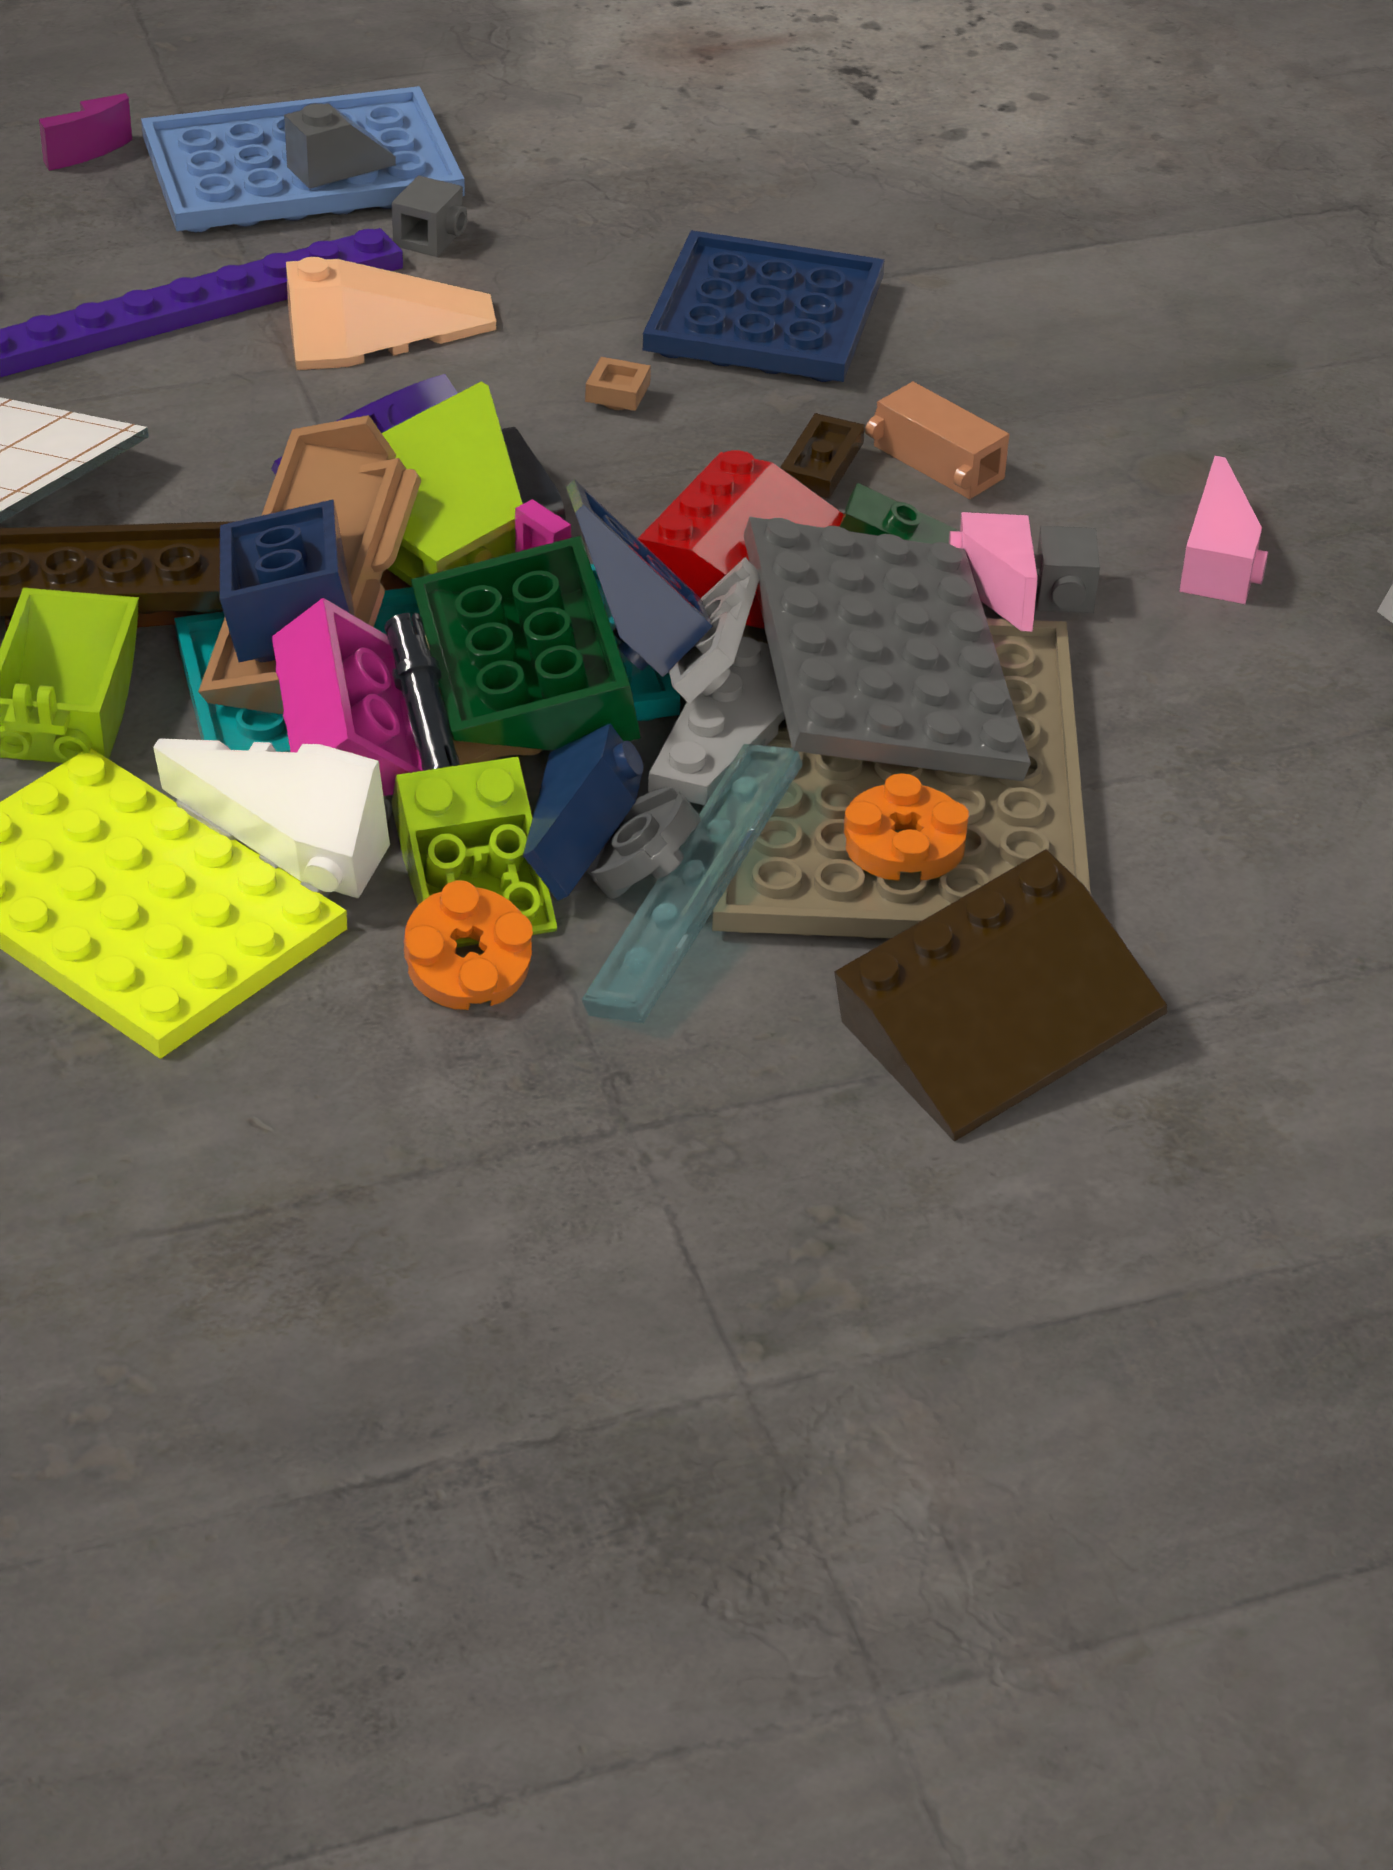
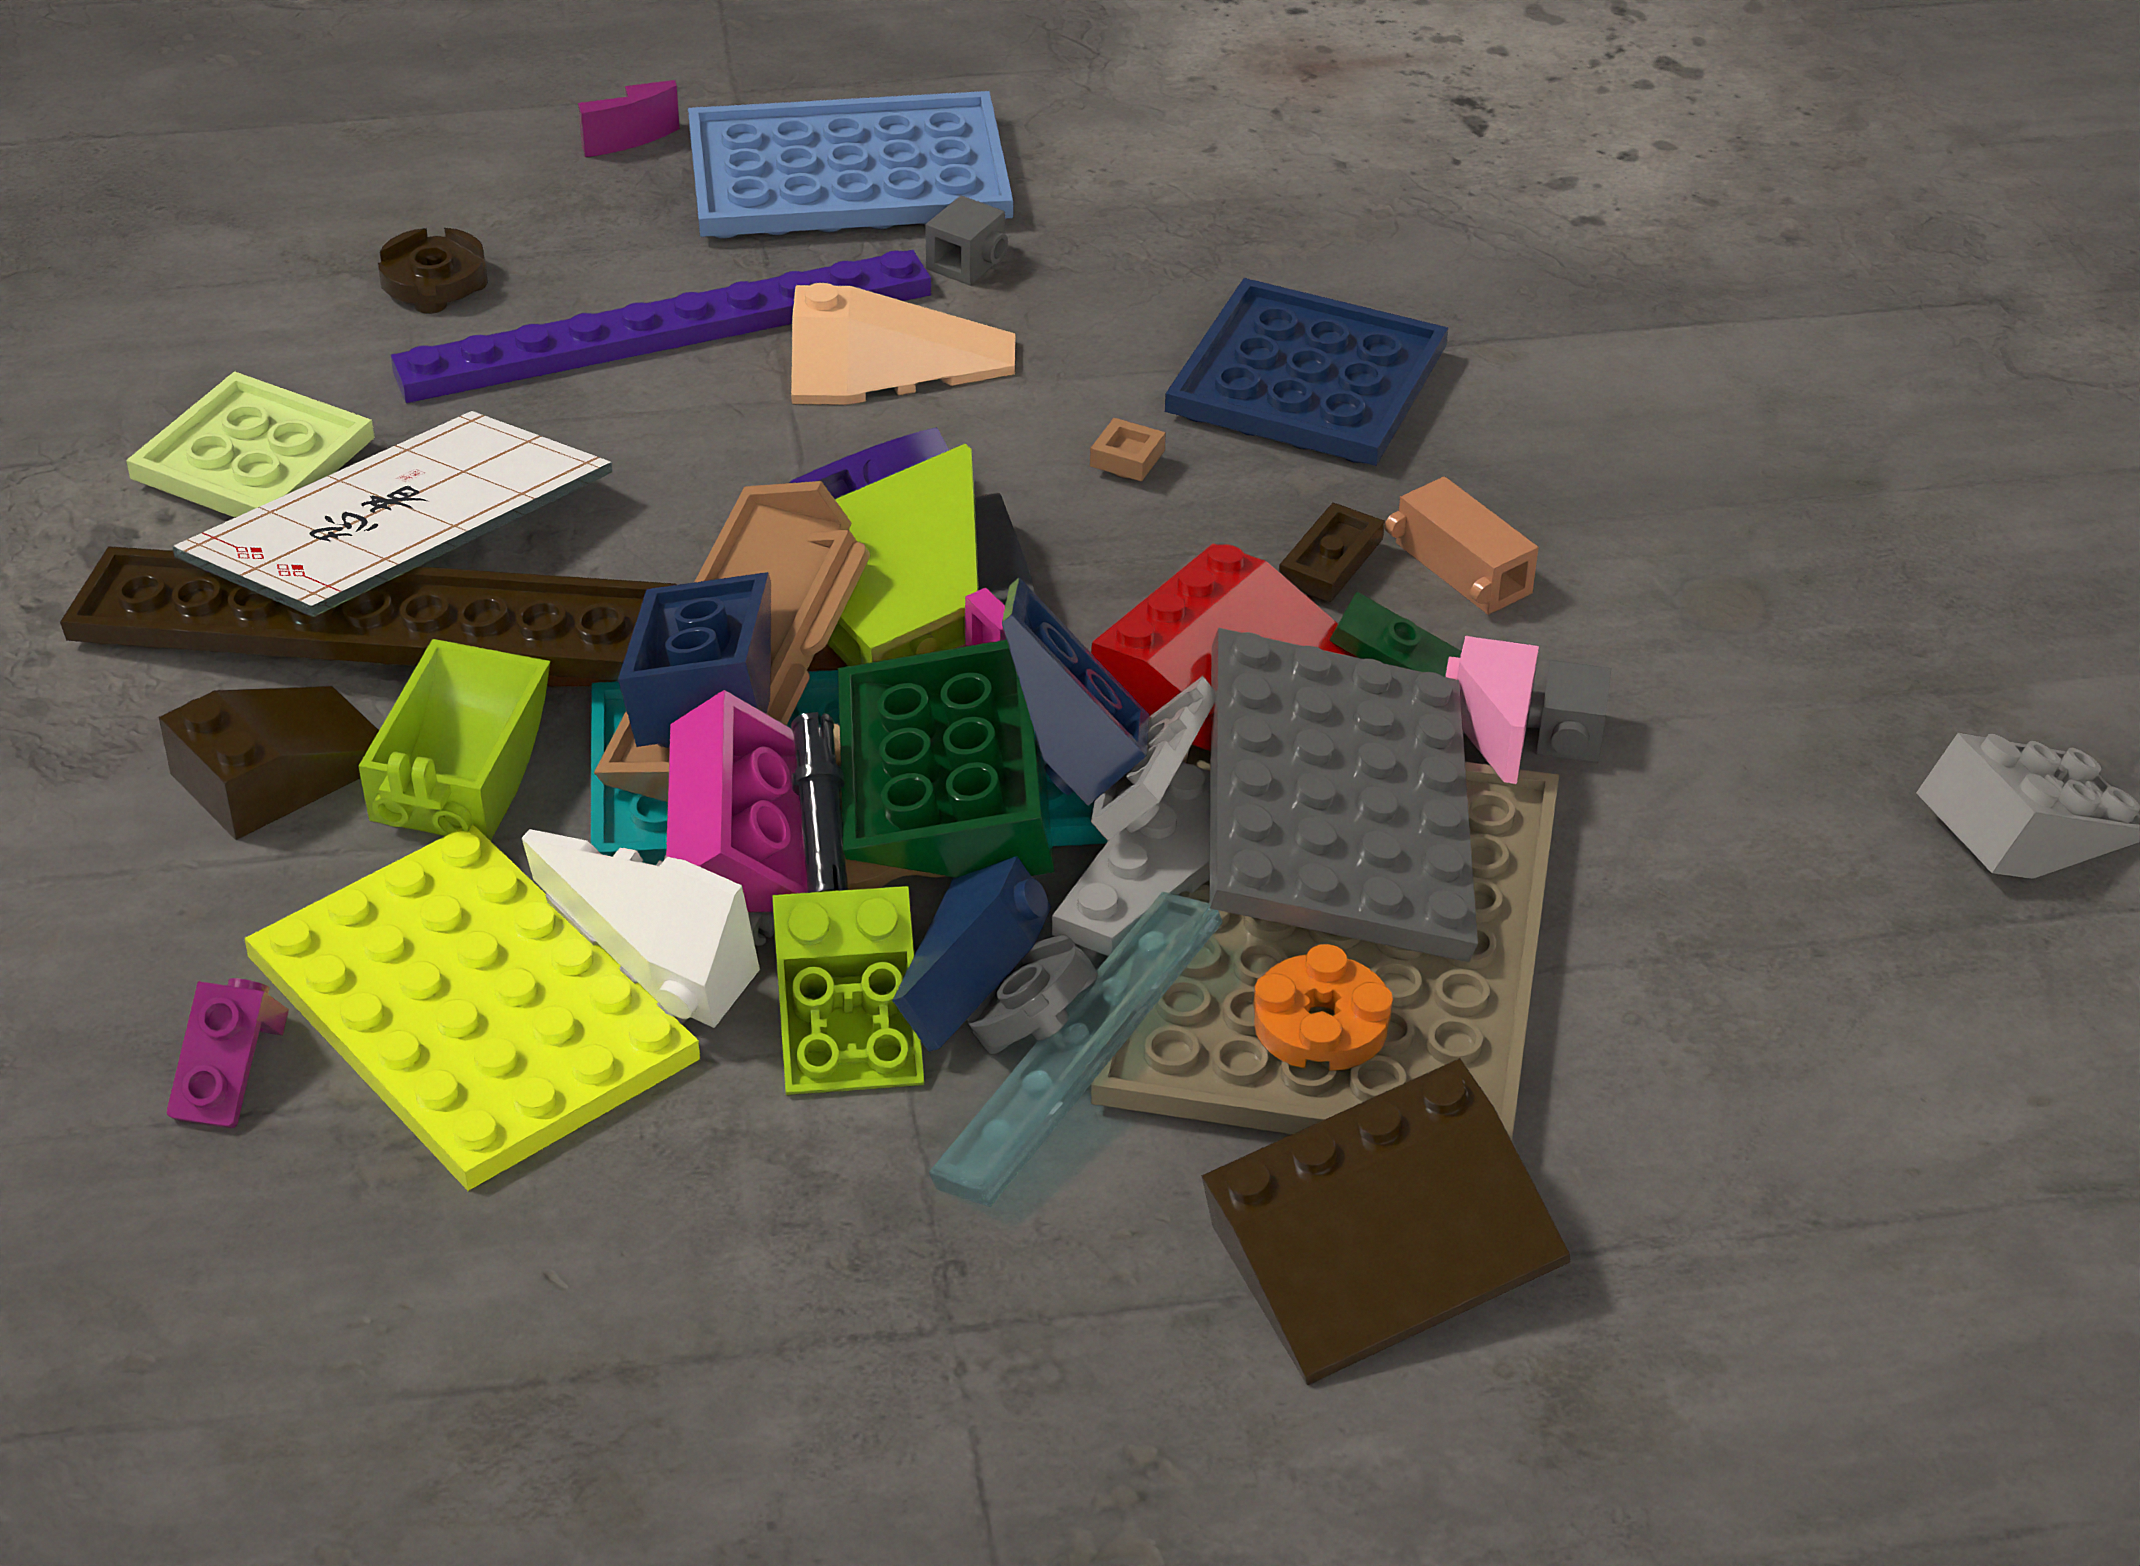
camera: 10 degrees right, 0 degrees up
(330, 146) = (876, 156): dark grey slope -> none
(475, 914) = (820, 1135): orange plate -> none
(1224, 541) = (1757, 693): bright pink slope -> none

